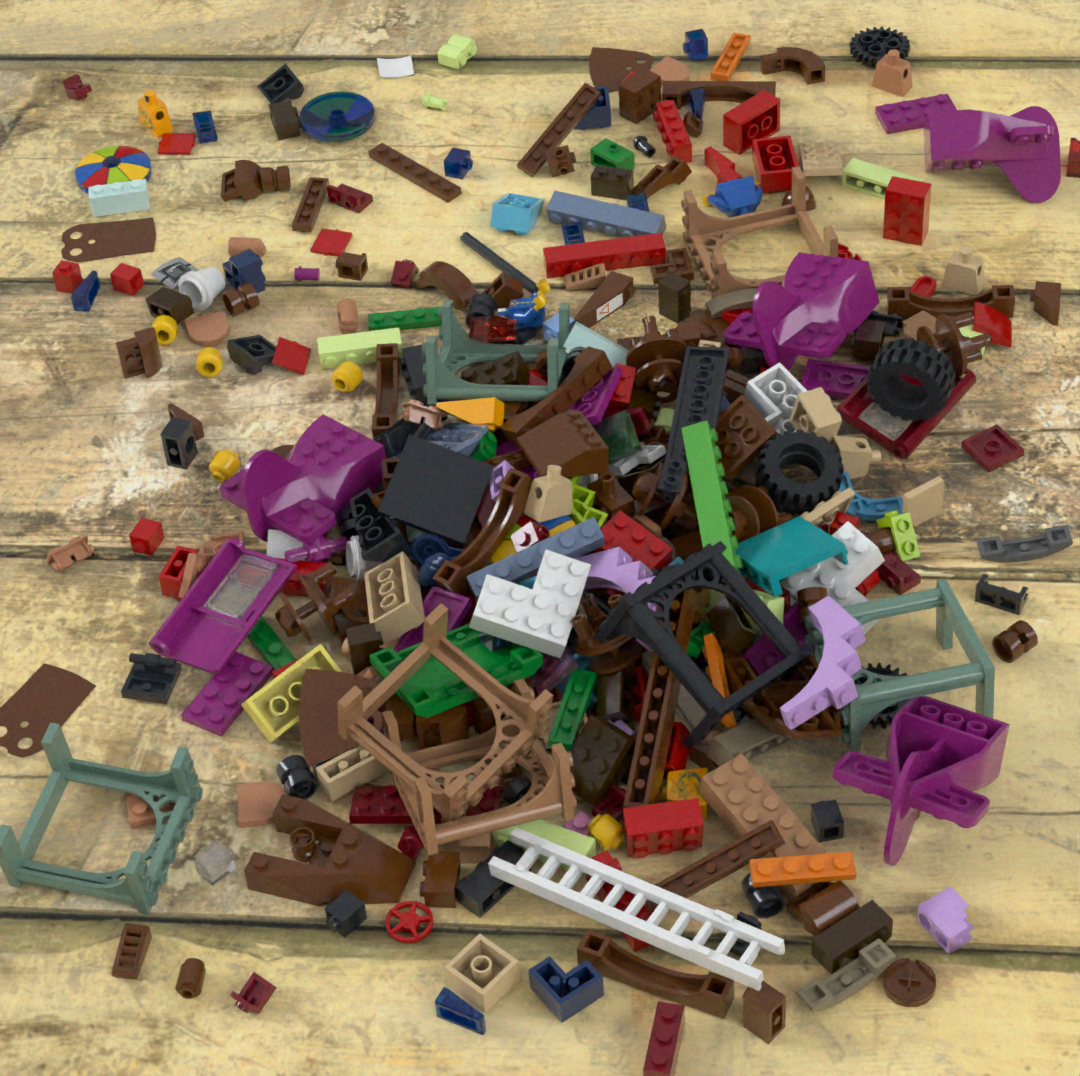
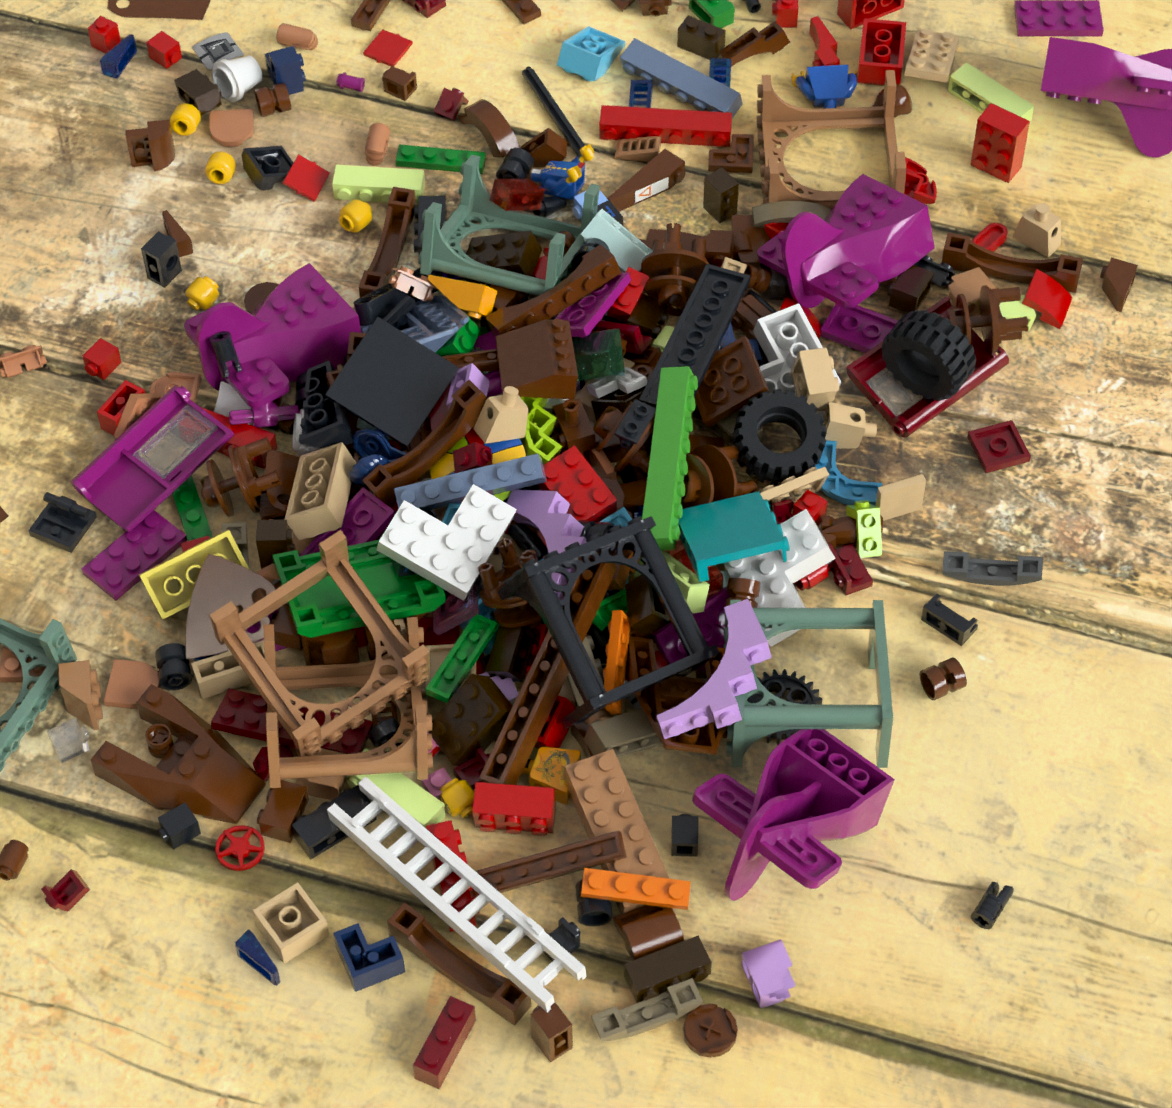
camera: 10 degrees right, 10 degrees up
(215, 817) = (81, 692): none -> medium nougat slope
(270, 496) = (225, 352): none -> black hinge

